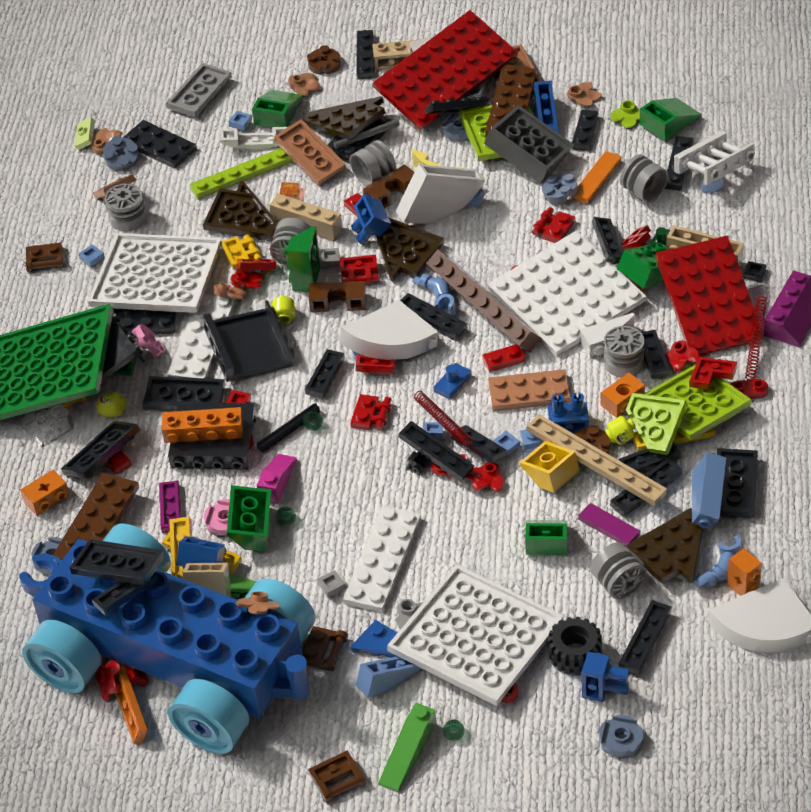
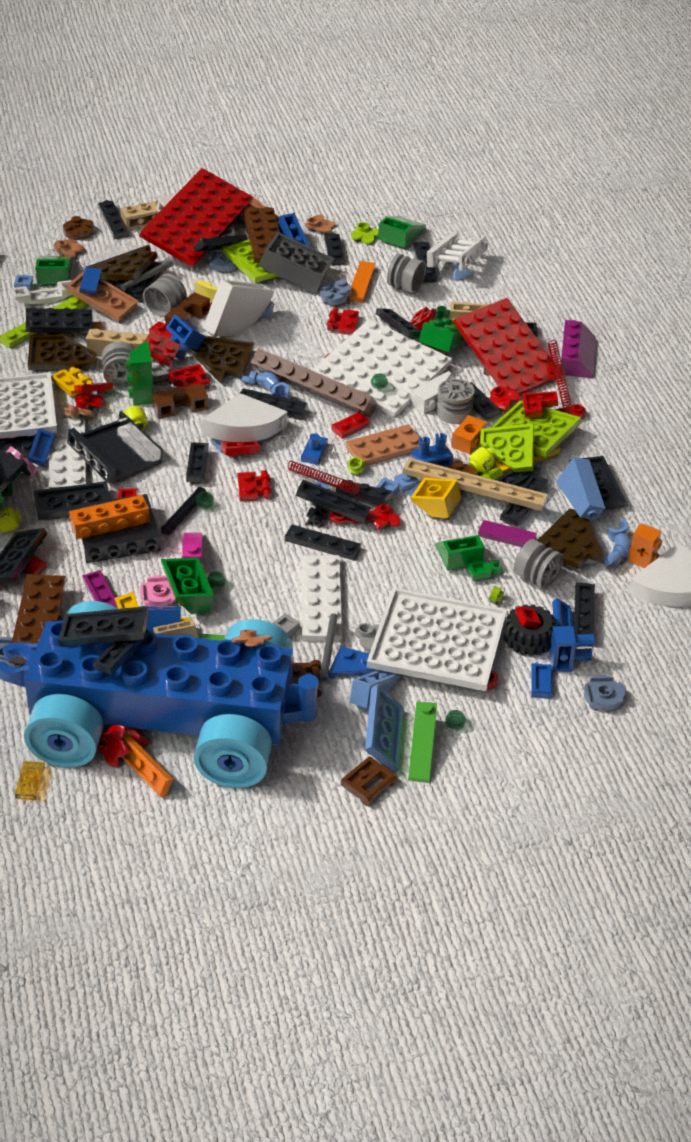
camera: 25 degrees left, 5 degrees down
(22, 697) = (30, 780): none -> clear yellow plate
(175, 327) = (41, 447): none -> blue tile
(253, 176) = (58, 320): none -> black plate
(300, 134) = (90, 280): none -> blue tile
(342, 227) = (163, 346): none -> red plate
(360, 618) = (328, 647): none -> dark grey bar
(373, 724) = (384, 728): none -> medium blue plate
(412, 494) = (322, 542): none -> black plate
(484, 405) = (356, 461): none -> lime plate
(550, 312) = (379, 381): none -> clear green plate
(560, 562) = (481, 570): none -> green plate
(562, 595) = (496, 594): none -> lime plate
(564, 706) = (541, 680): none -> blue tile
(571, 633) = (528, 617): none -> red plate
(618, 638) = (562, 613): none -> blue tile
(622, 450) = (493, 473): none -> lime tile

